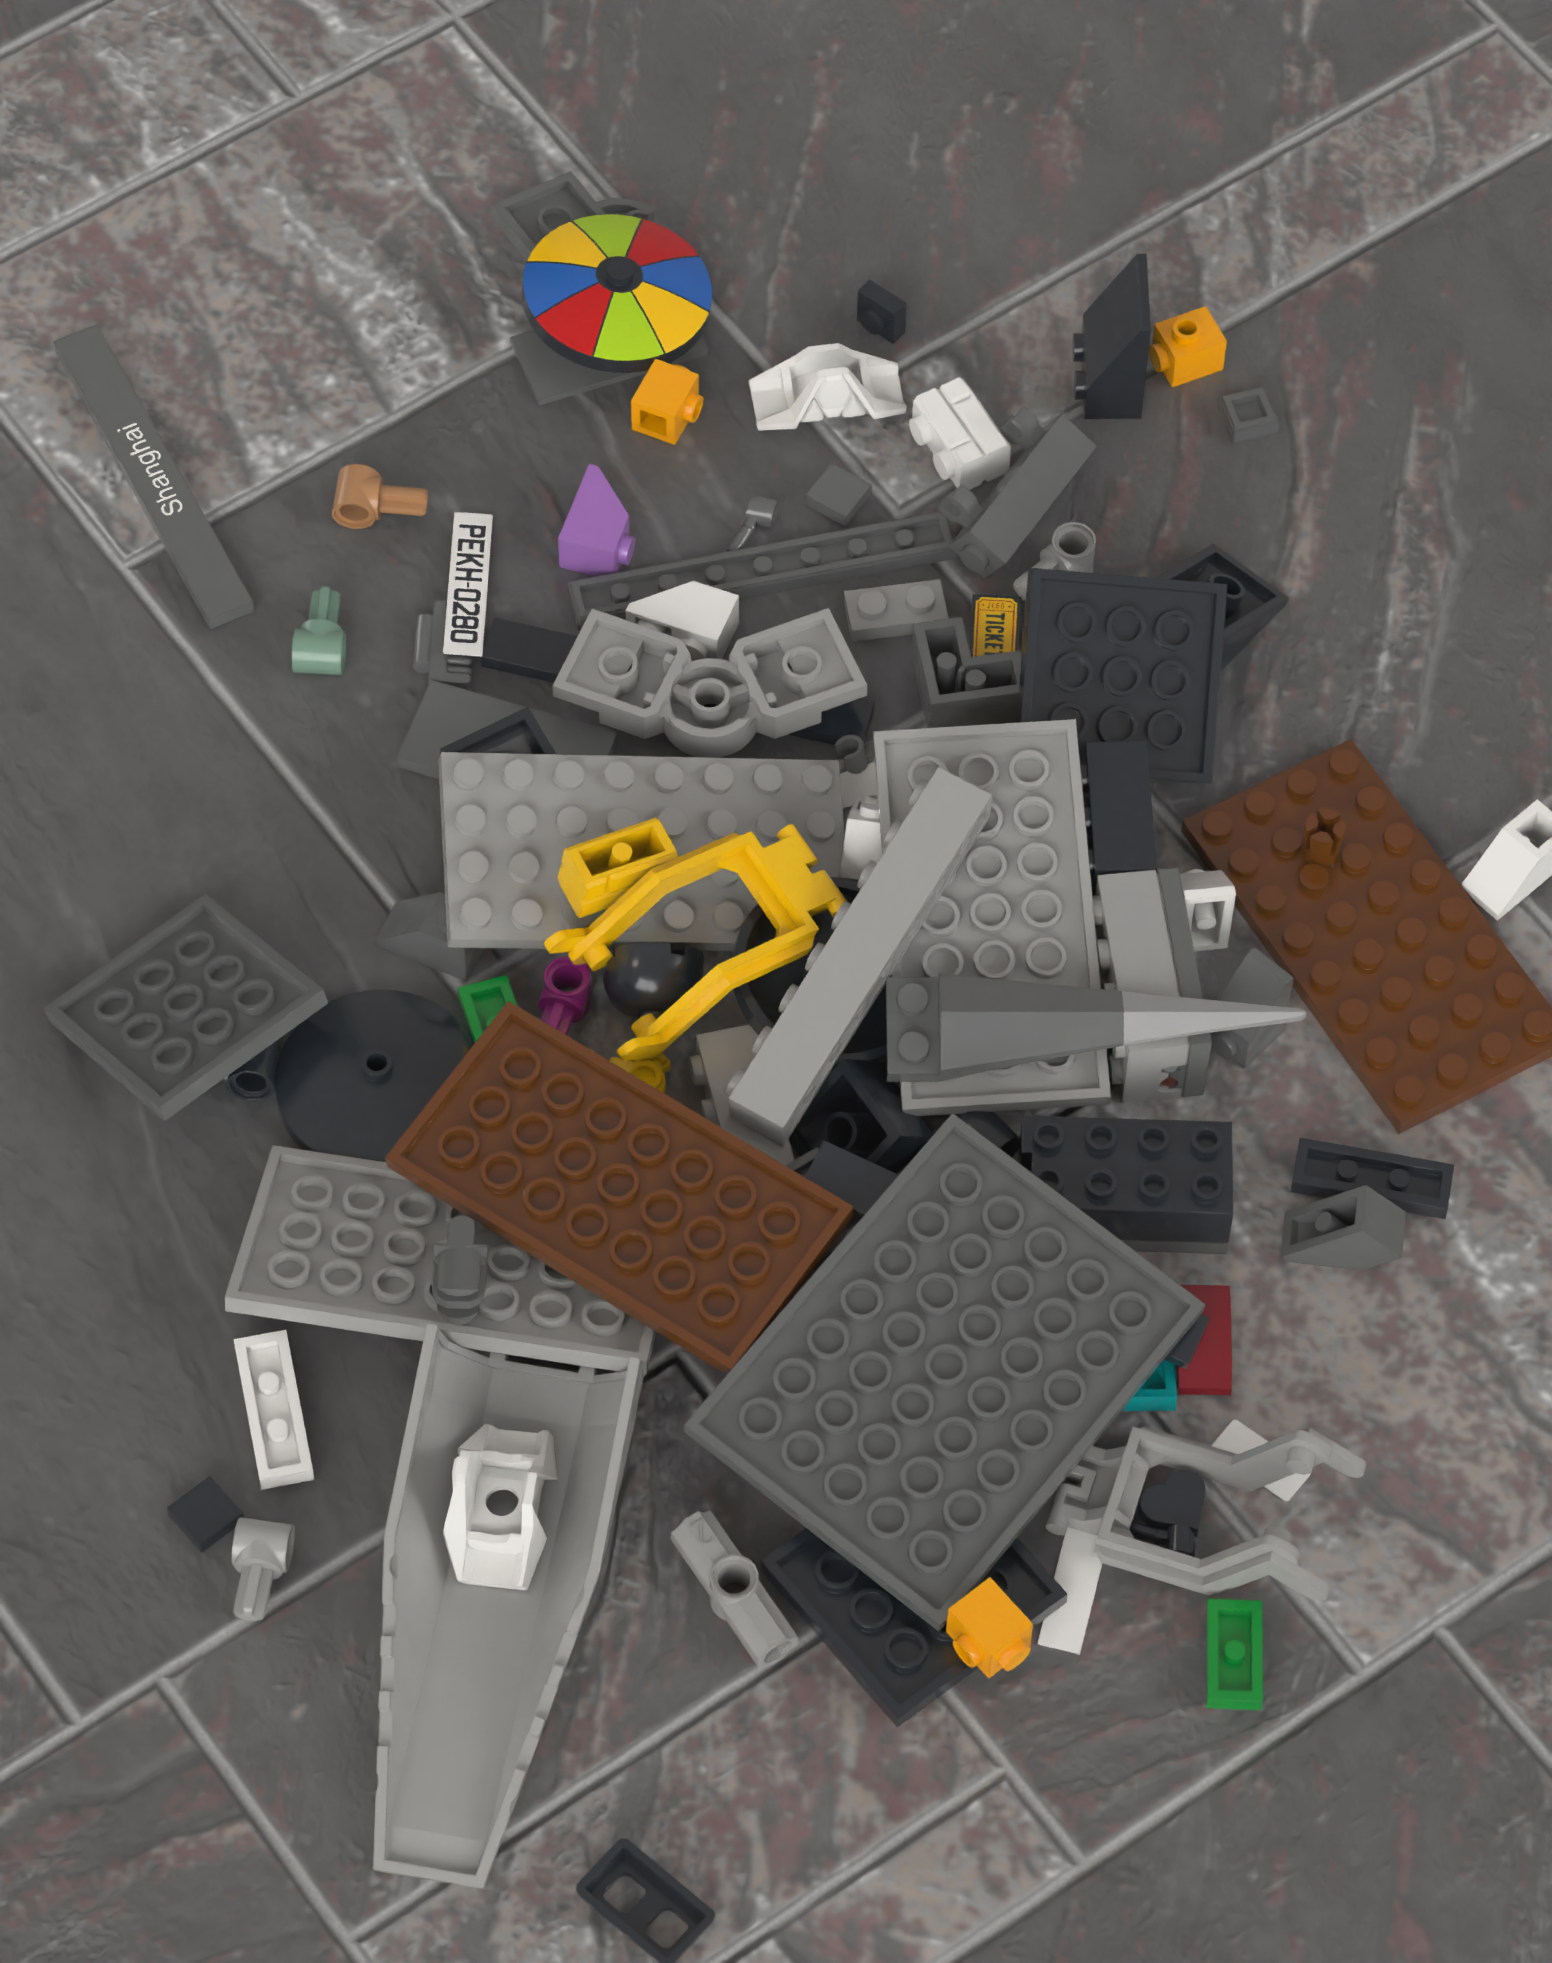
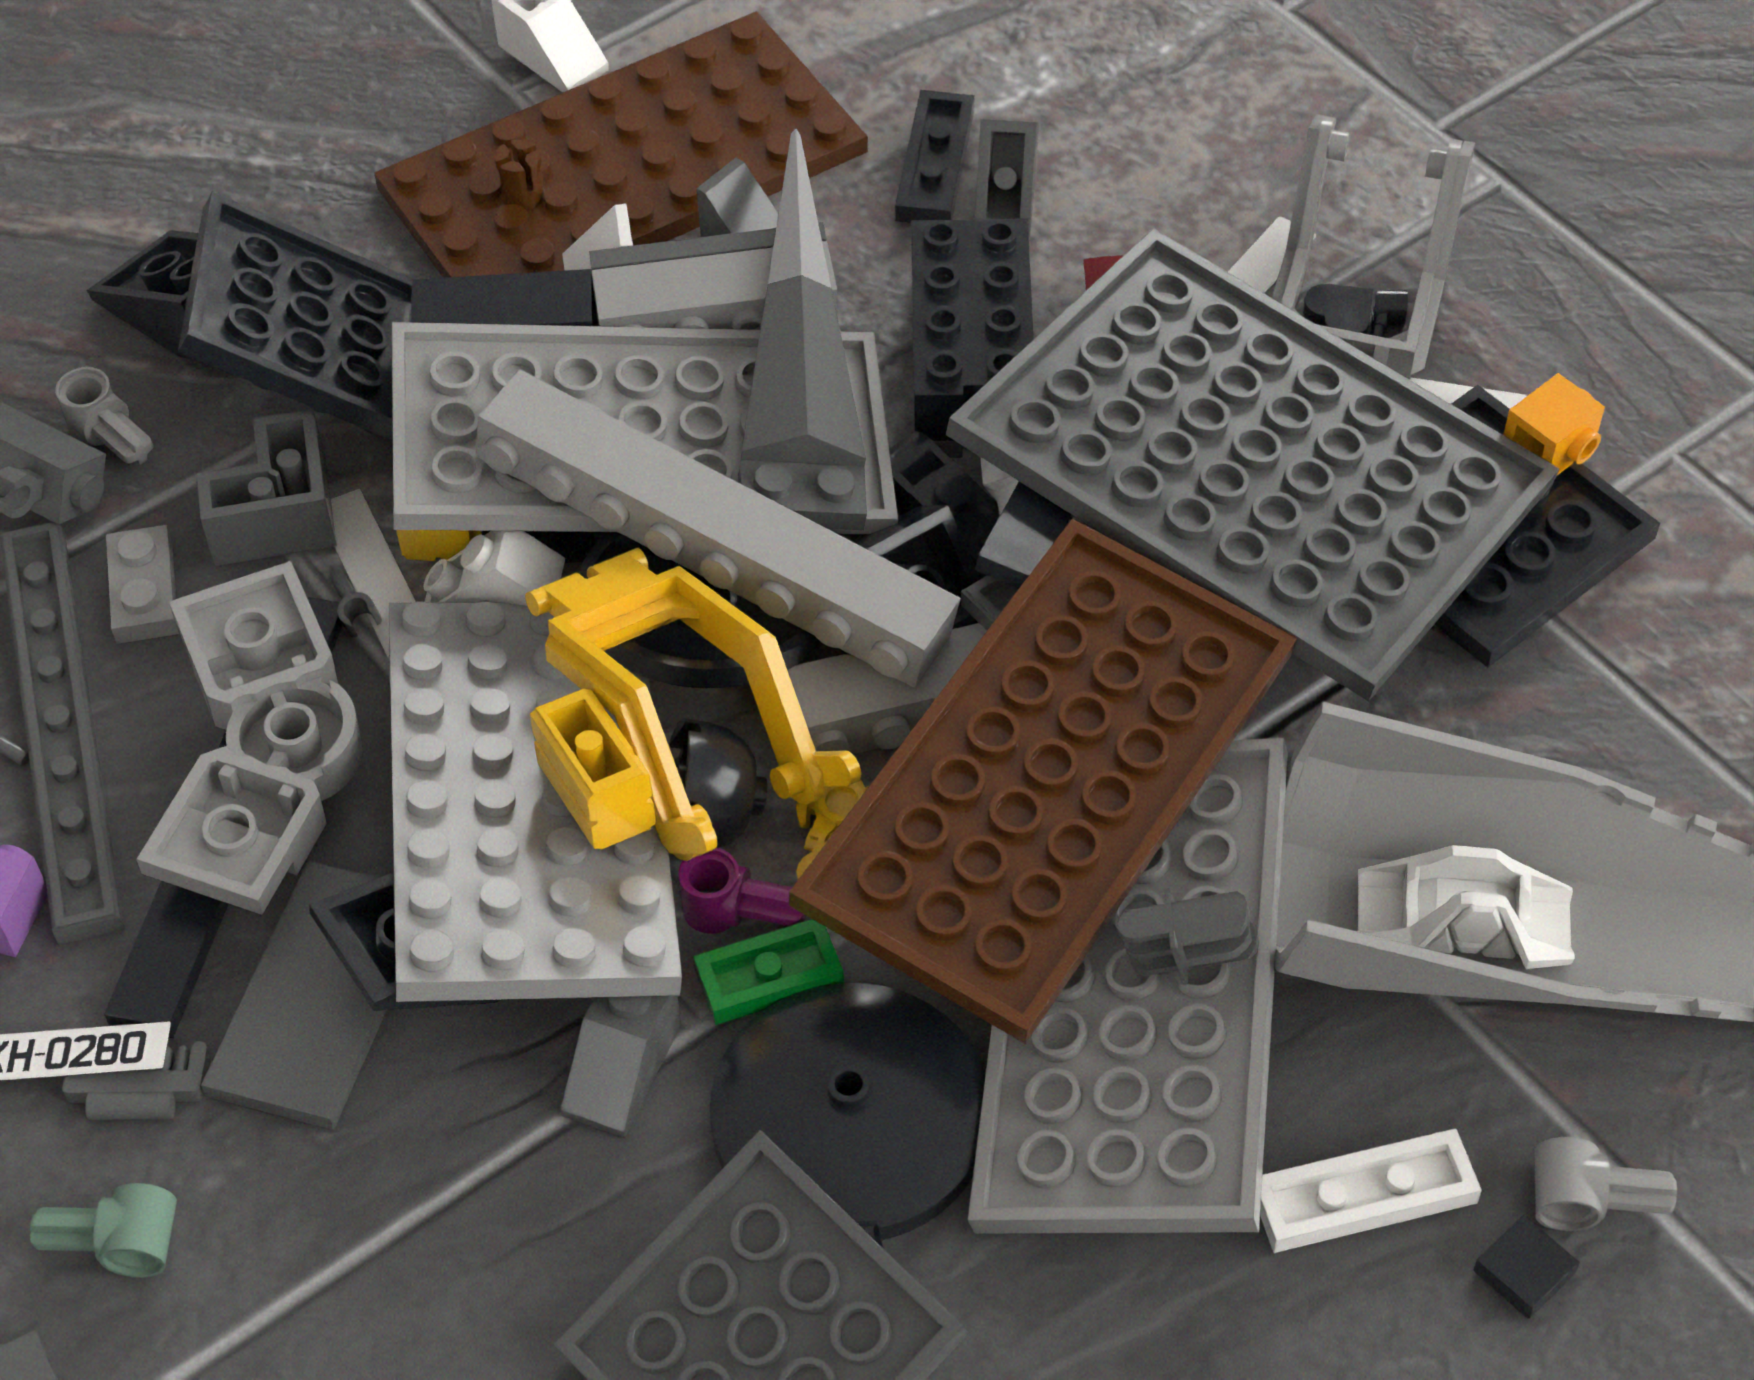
camera: 90 degrees left, 5 degrees down
(691, 612) = (140, 776): white slope -> none
(749, 1613) = (1530, 678): light grey piece -> none
(994, 624) = (170, 483): tile -> none
(1234, 1654) = (1512, 260): green plate -> none

